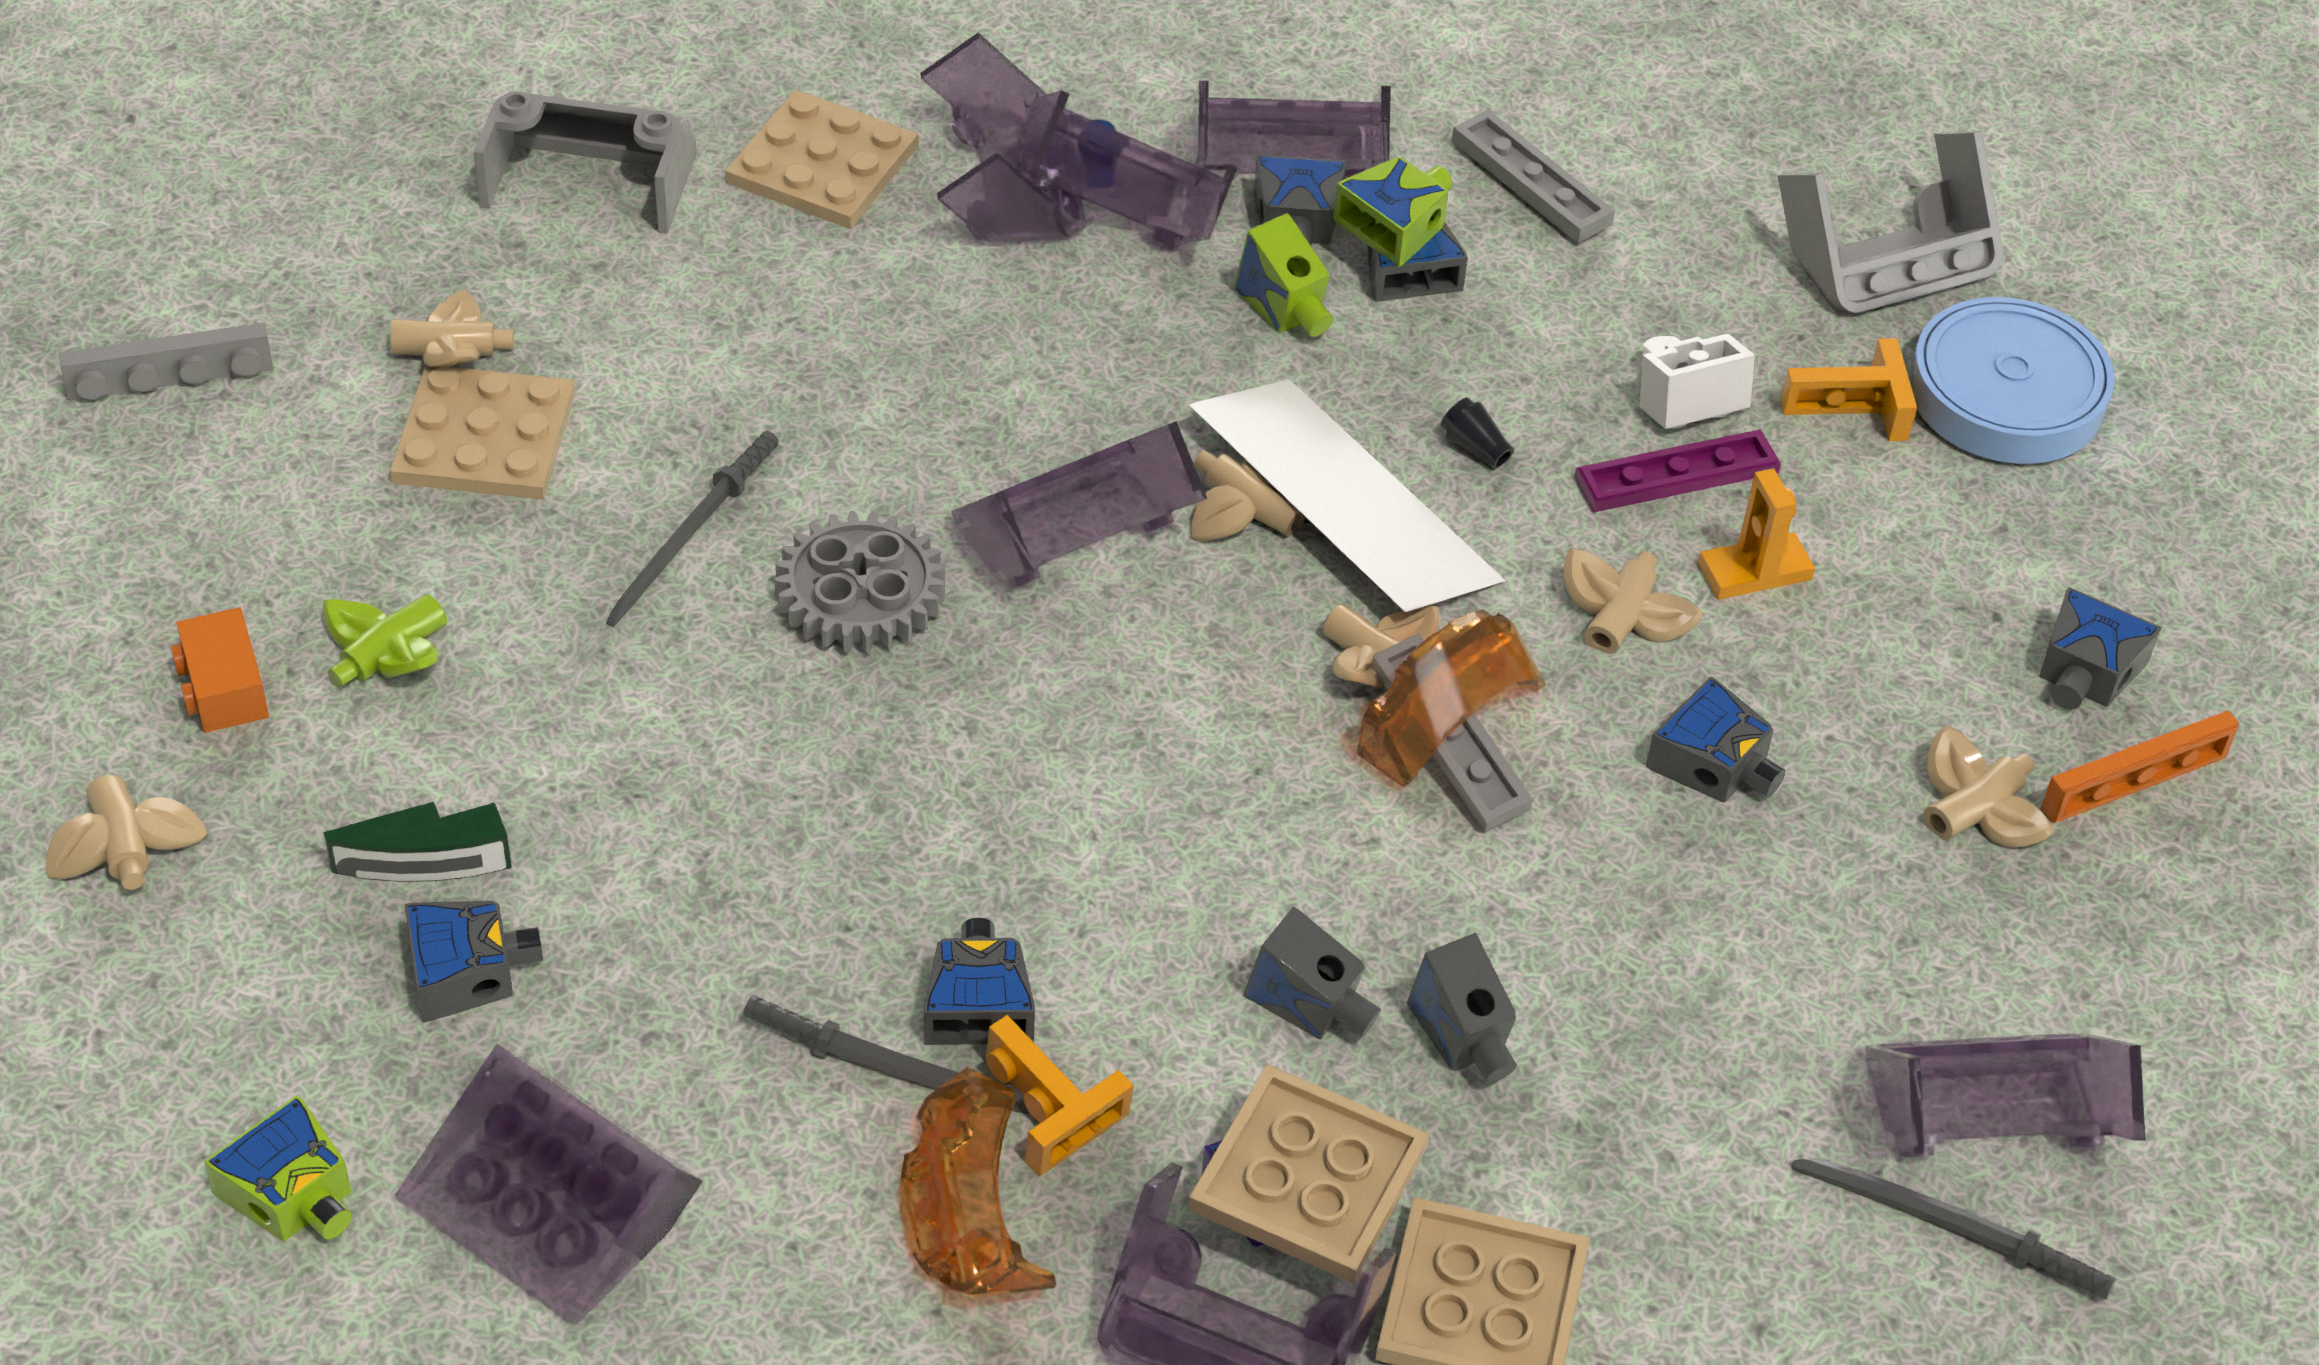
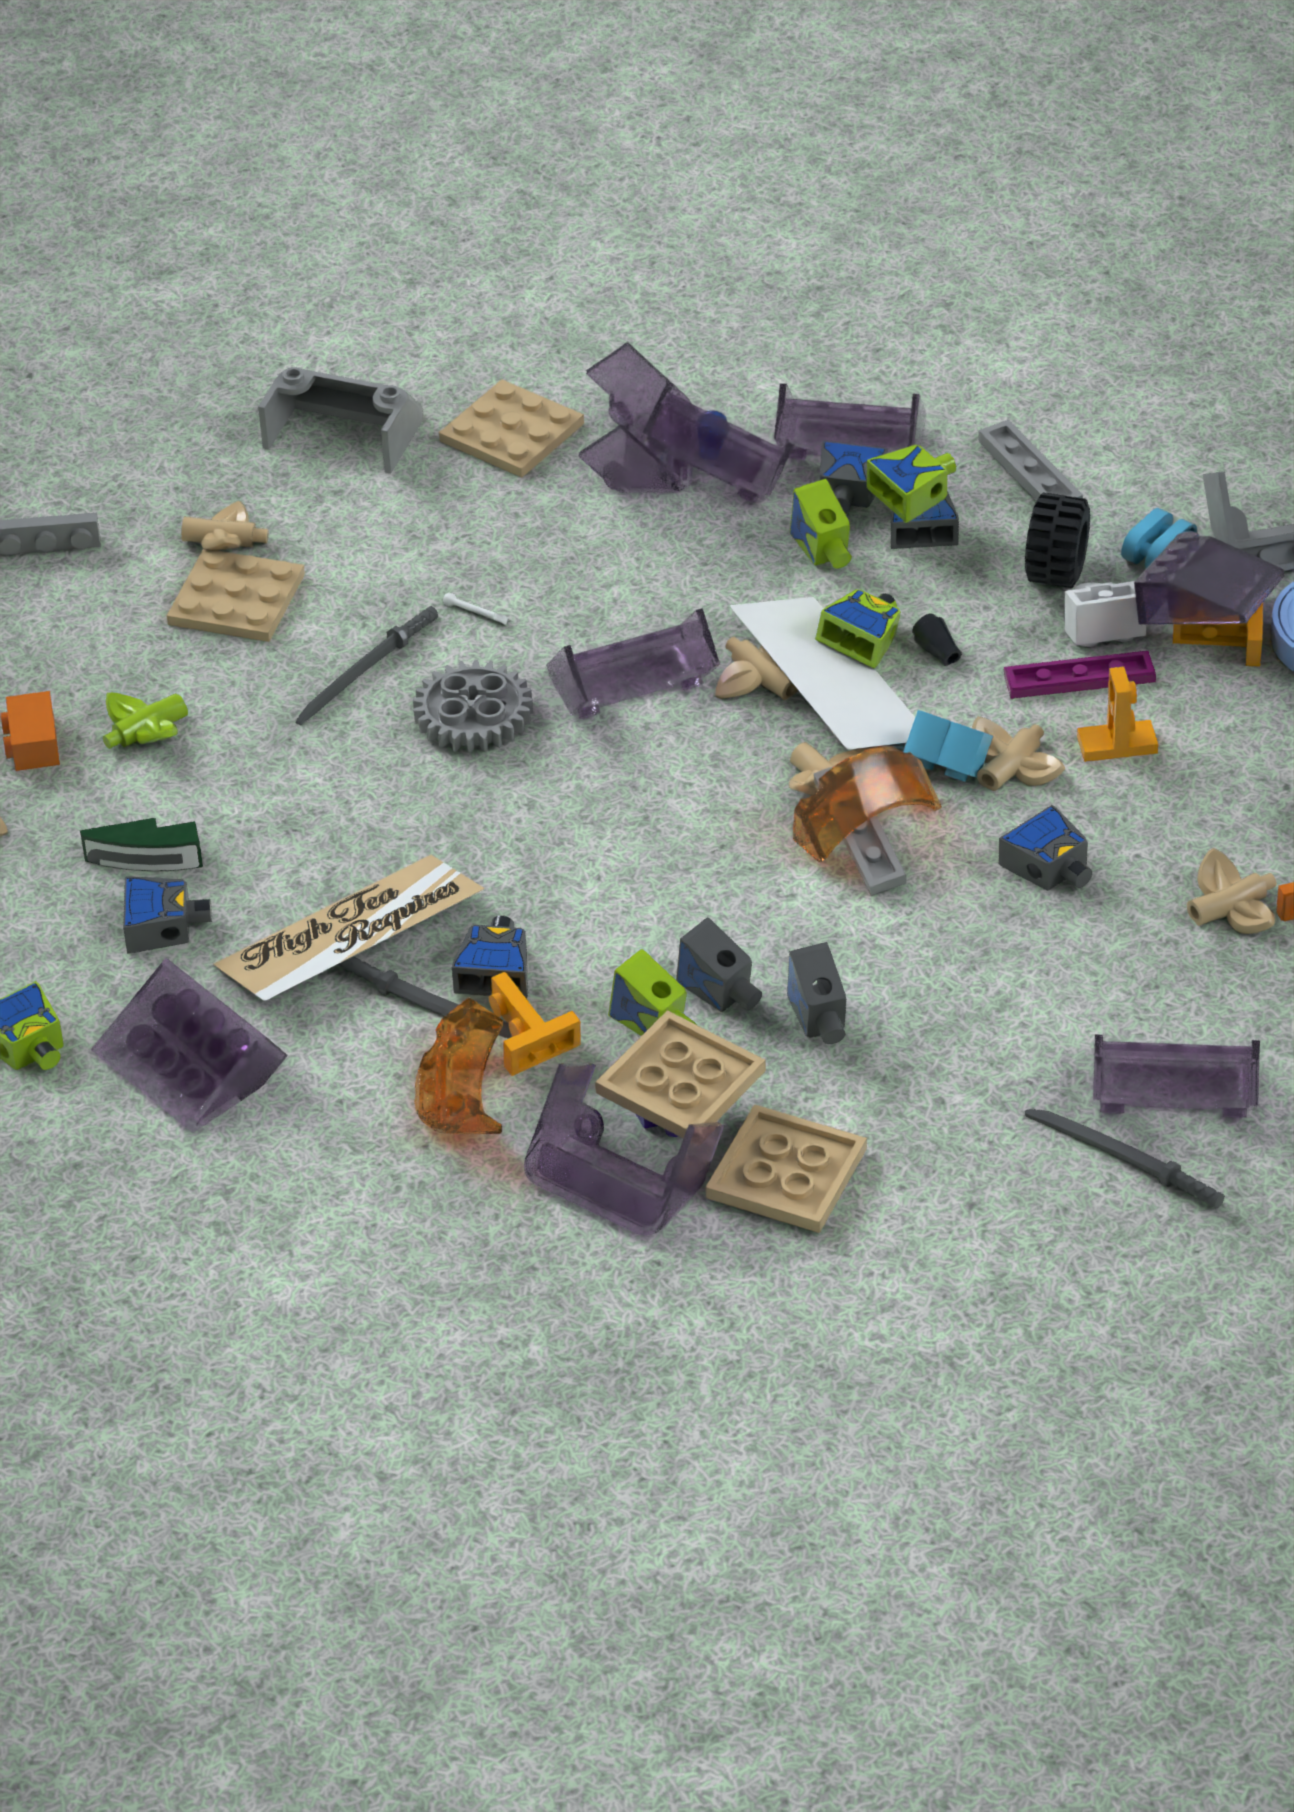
camera: 15 degrees right, 5 degrees down
(747, 955) = (348, 927): none -> sticker
(791, 418) = (450, 600): none -> white hinge
(1222, 1038) = (644, 993): none -> lime torso
(1372, 422) = (860, 626): none -> lime torso
(1540, 594) = (948, 745): none -> medium azure brick
(1610, 280) = (1057, 540): none -> black tyre
(1745, 286) = (1152, 536): none -> medium azure brick
(1826, 333) = (1203, 583): none -> clear purple slope

